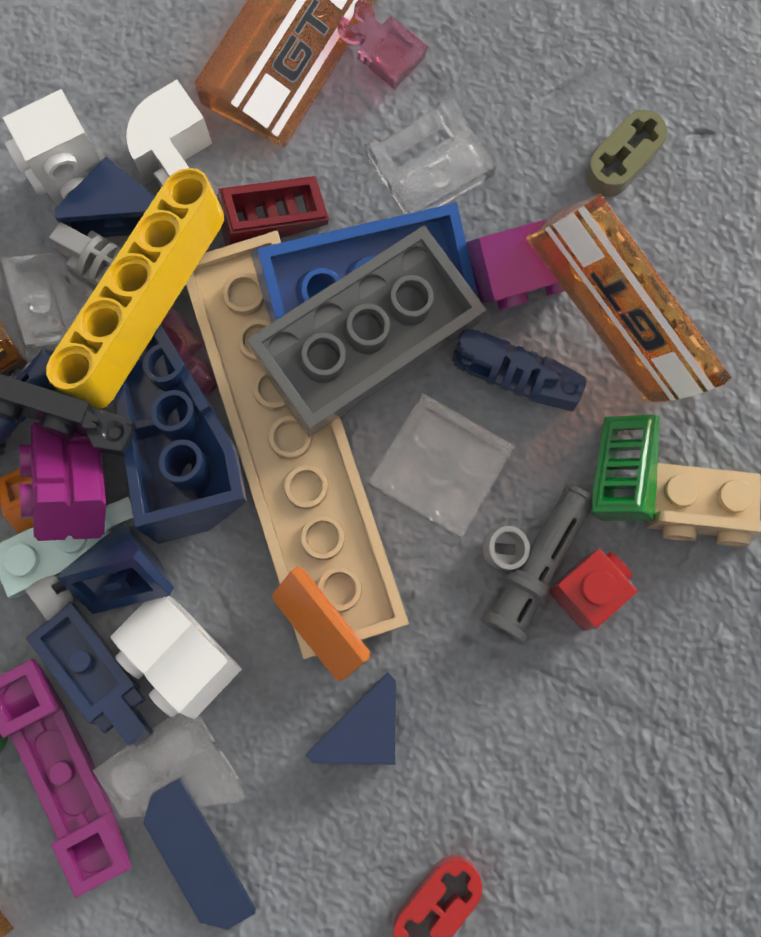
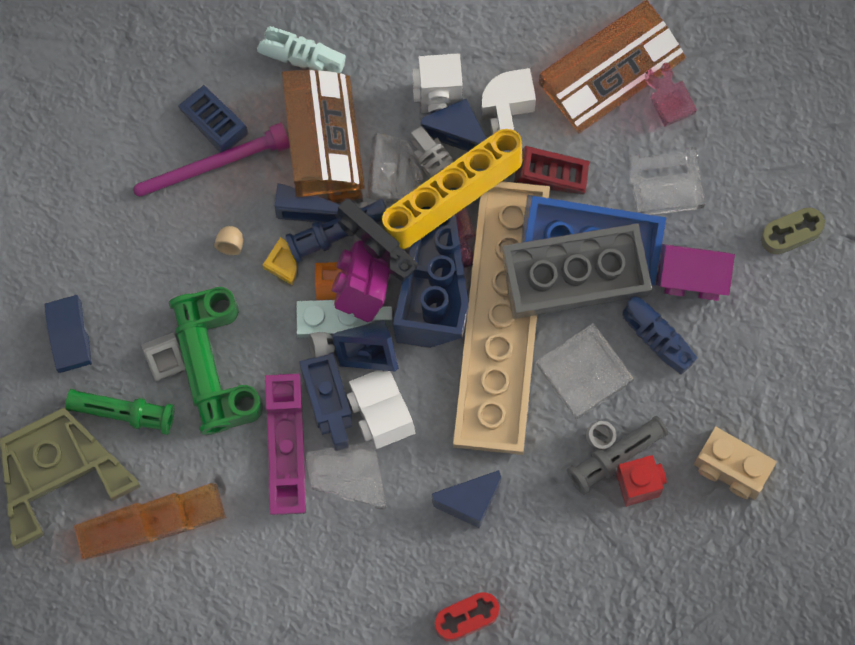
camera: 25 degrees right, 5 degrees down
(196, 857) = (343, 526): dark blue piece -> none
(320, 624) = (472, 427): orange slope -> none
(626, 302) = (733, 322): clear orange slope -> none
(643, 505) = (696, 440): green slope -> none

